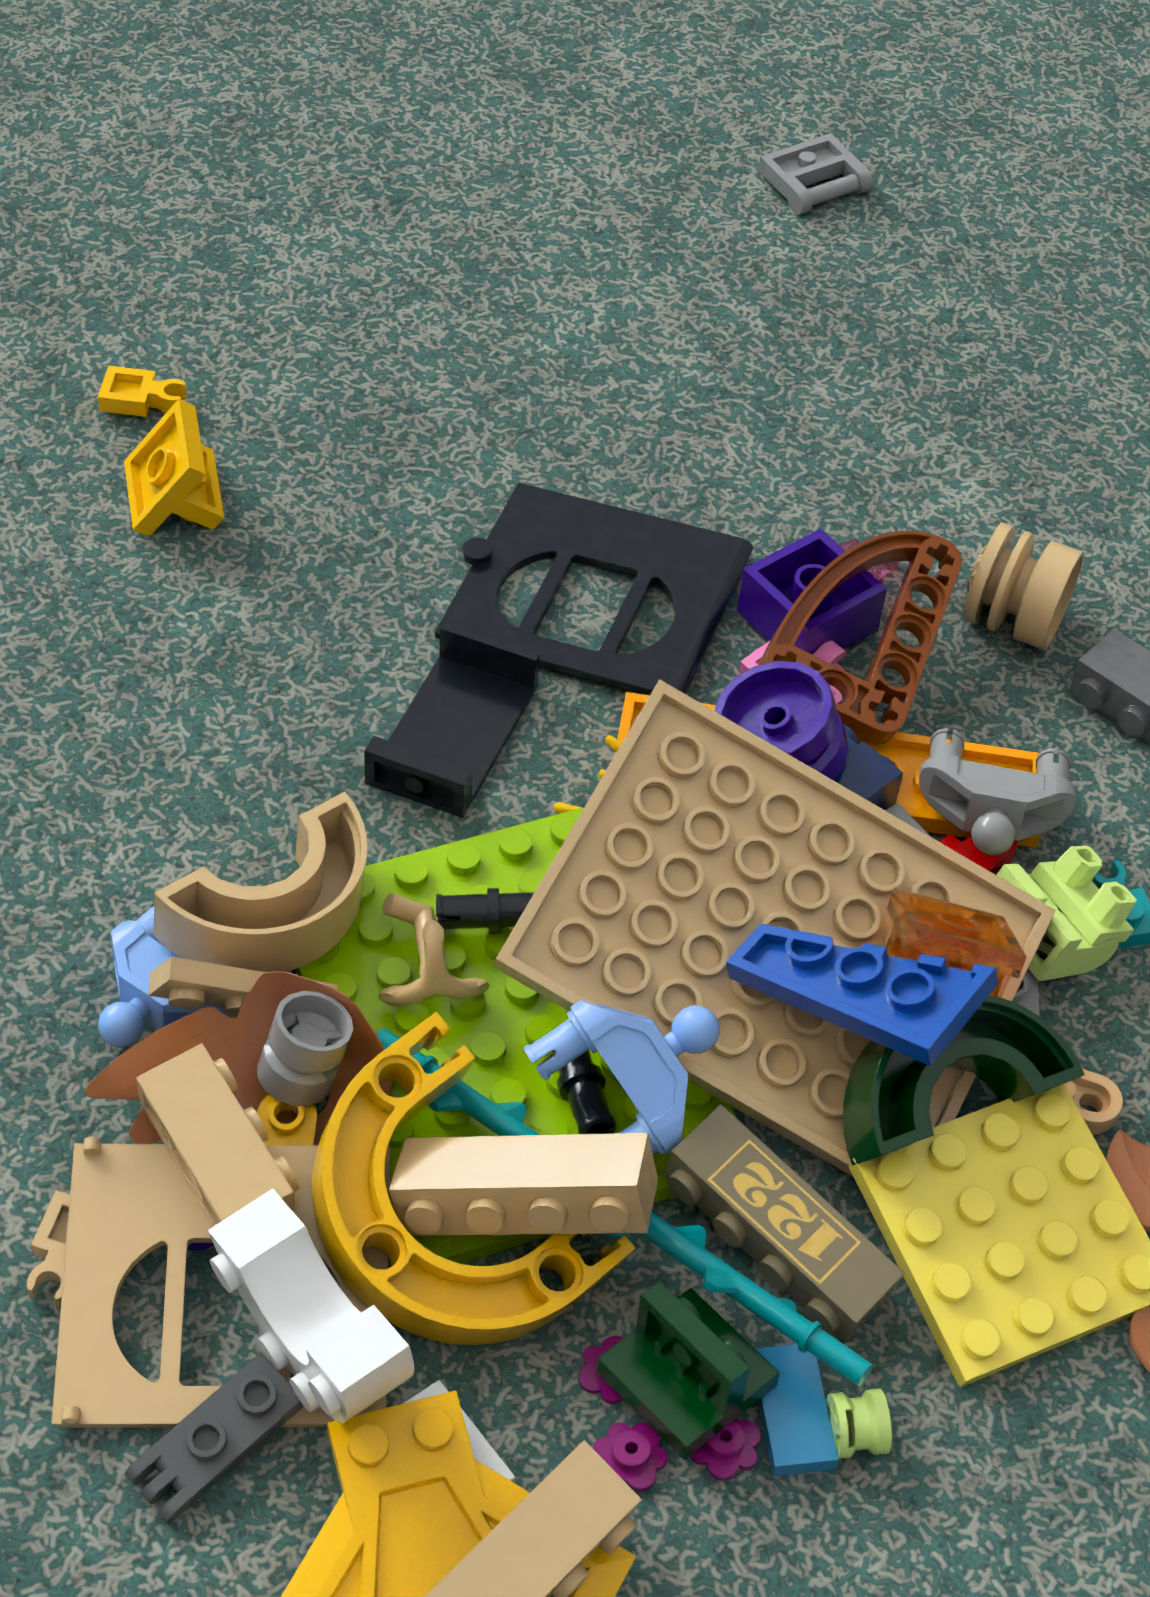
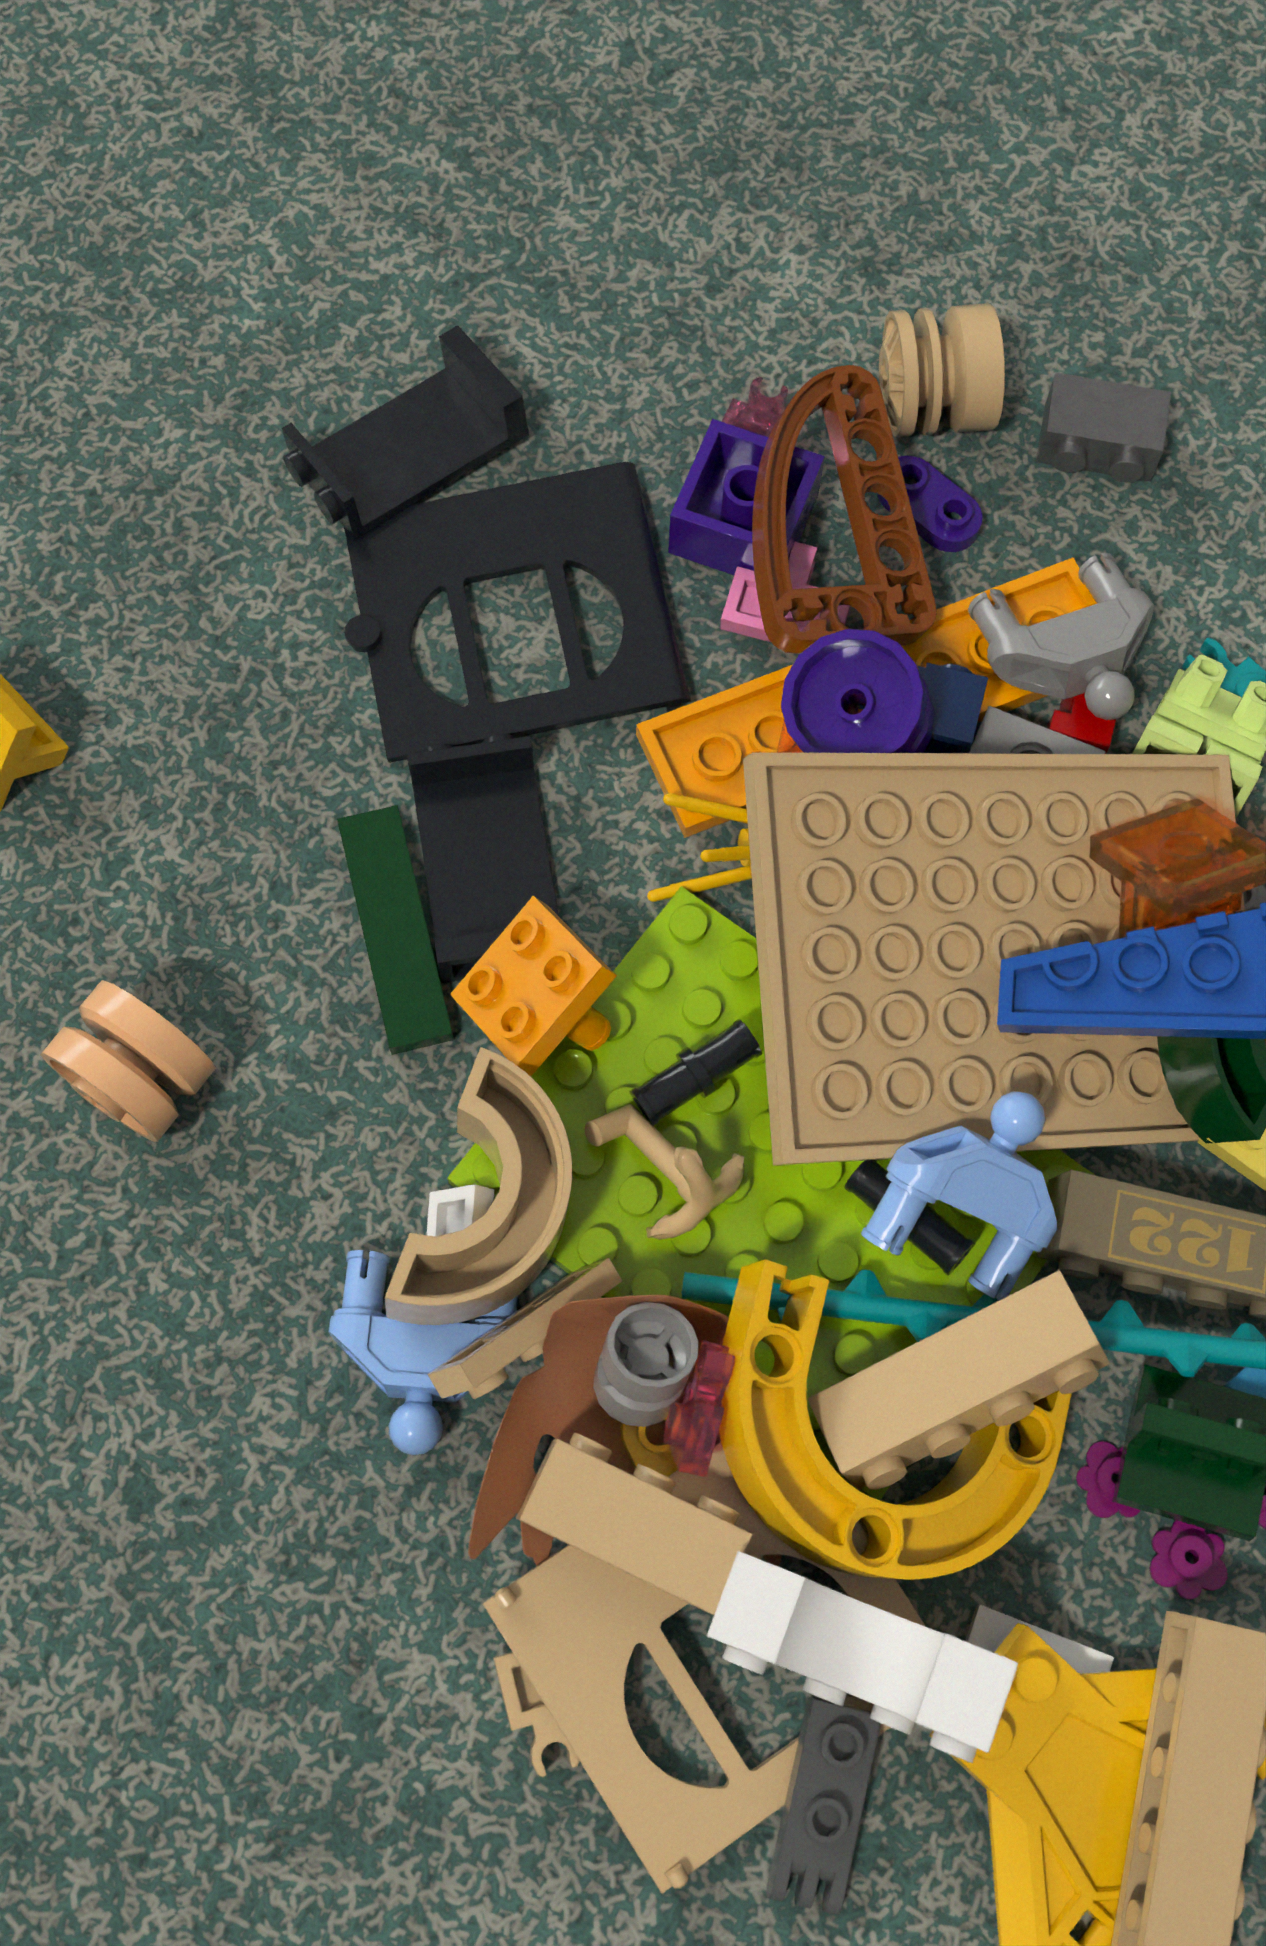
camera: 30 degrees left, 20 degrees up
(108, 696) = (135, 1053): none -> light nougat wheel
(312, 1103) = (695, 1422): none -> clear pink plate
(363, 712) = (395, 930): none -> dark green tile
(417, 792) = (536, 989): none -> light orange plate
(600, 460) = (411, 441): none -> black panel
(954, 668) = (934, 497): none -> dark purple plate

